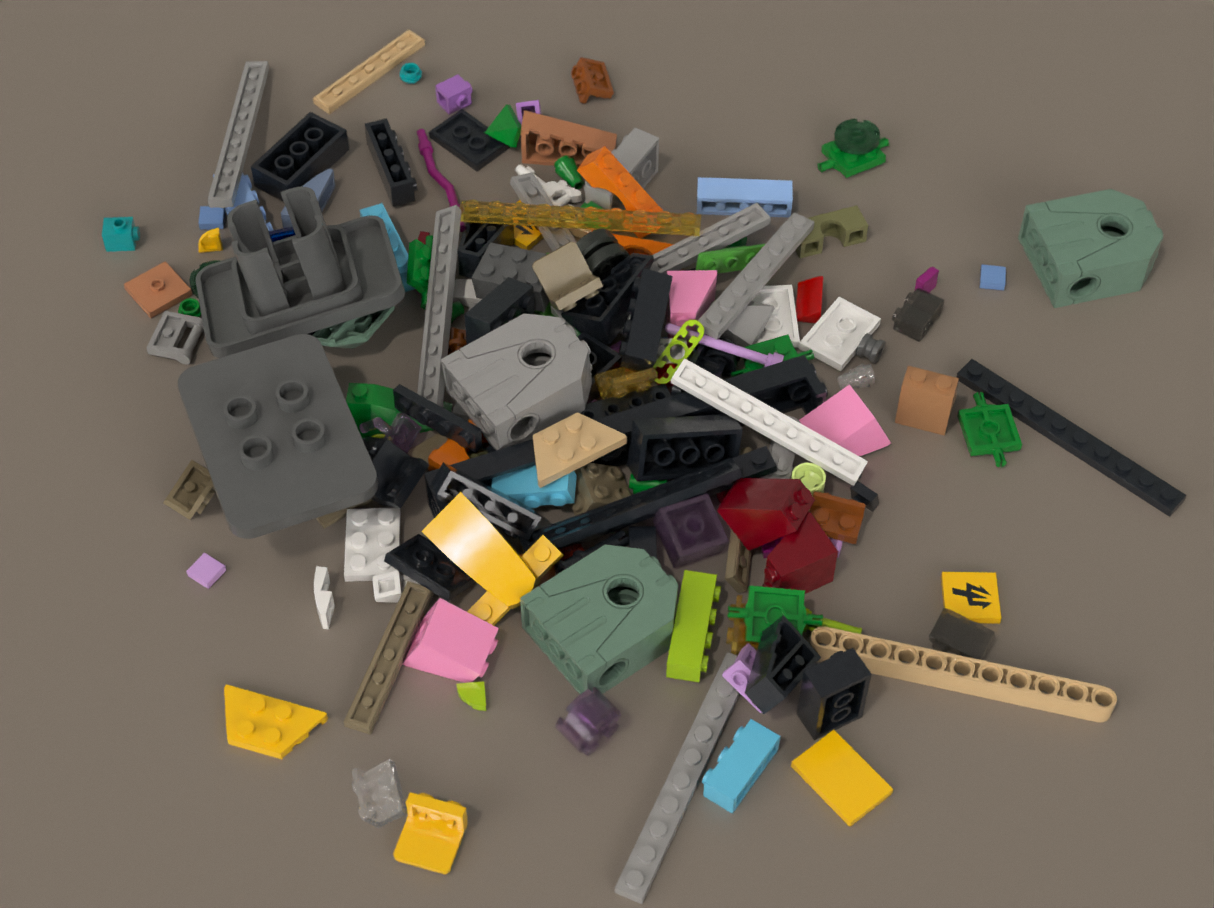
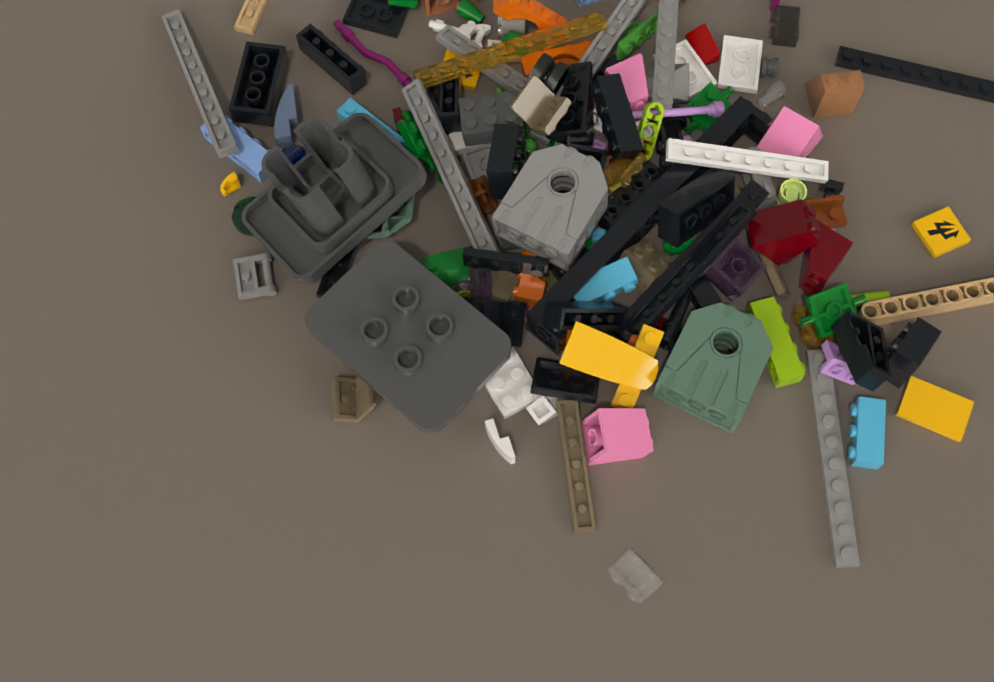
camera: 25 degrees left, 15 degrees up
(120, 234) = (154, 208): teal brick -> none
(158, 289) = (213, 242): nougat plate -> none
(190, 307) = (249, 244): green plate -> none
(206, 570) = (397, 459): lavender tile -> none
(211, 217) = (215, 164): medium blue tile -> none
(267, 722) = (517, 559): yellow wing -> none
(431, 833) = (689, 589): yellow bracket -> none
(473, 694) = (651, 466): lime tile -> none
(572, 445) = (622, 243): tan wing -> none
(589, 720) = (751, 450): clear purple brick -> none
(960, 635) = (956, 266): clear smoke brick -> none
(989, 429) = (884, 97): green plate -> none

